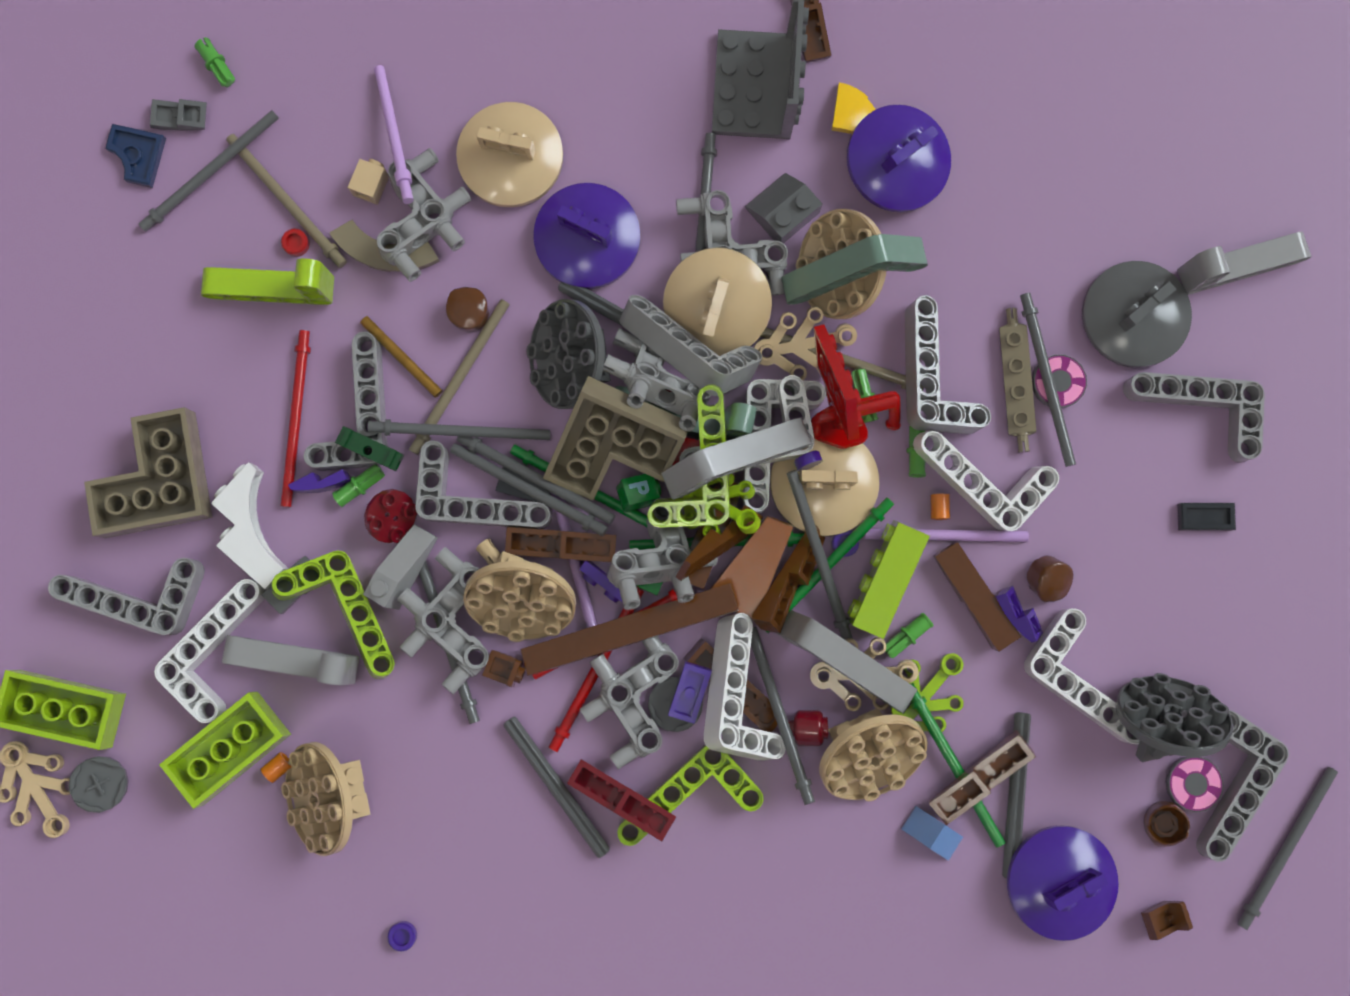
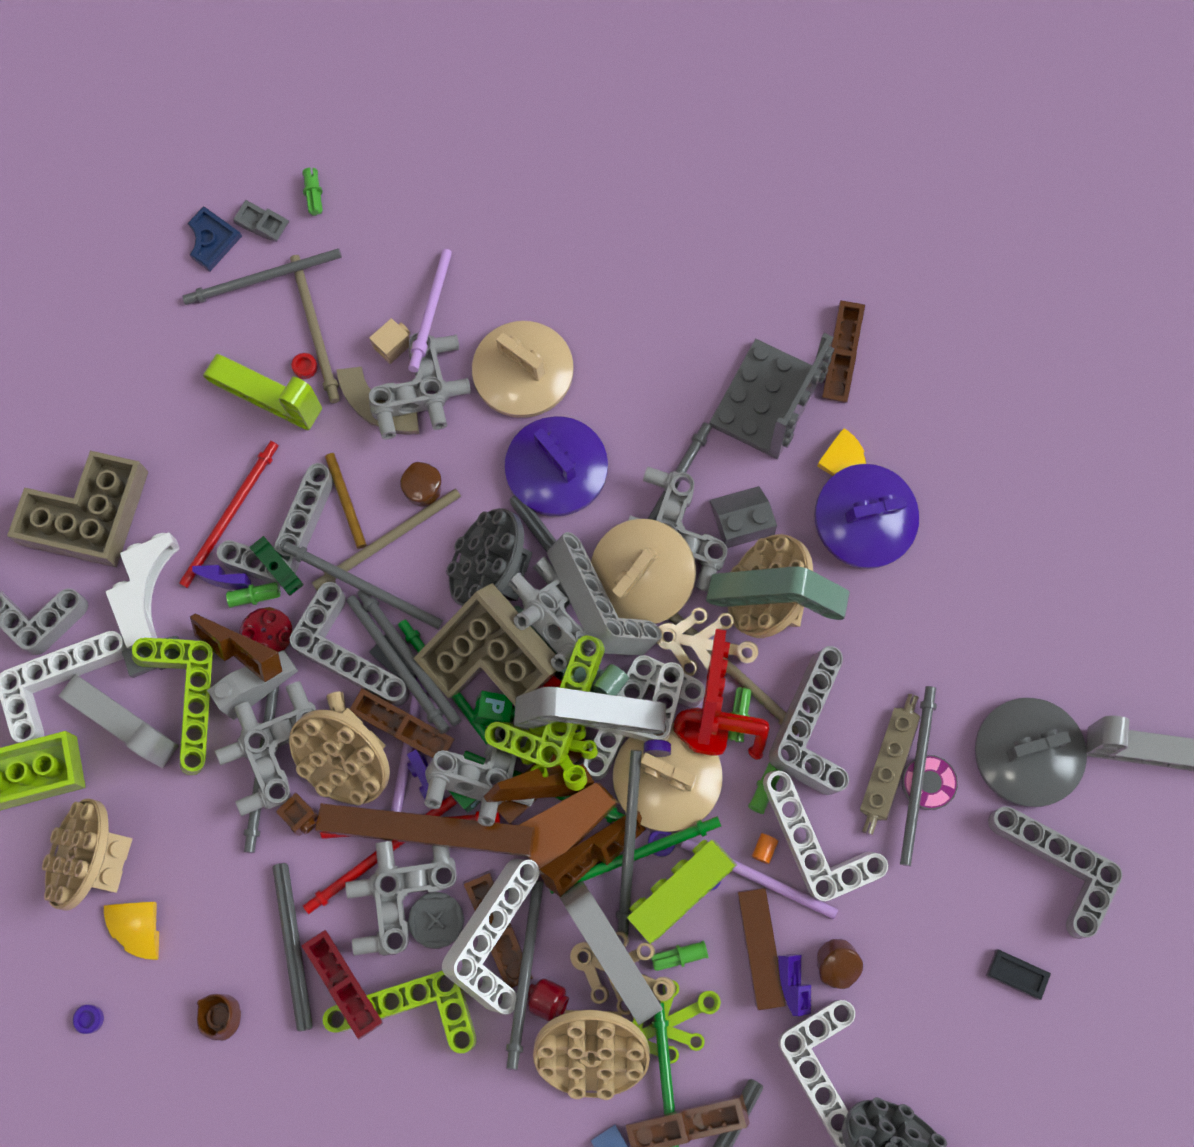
camera: 30 degrees right, 10 degrees down
(276, 767) = (56, 811): orange hinge -> none
(359, 542) = (226, 643): none -> reddish brown slope
(403, 837) = (134, 927): none -> yellow brick
(521, 879) = (218, 1016): none -> reddish brown hair
(689, 692) = (452, 913): dark purple plate -> none

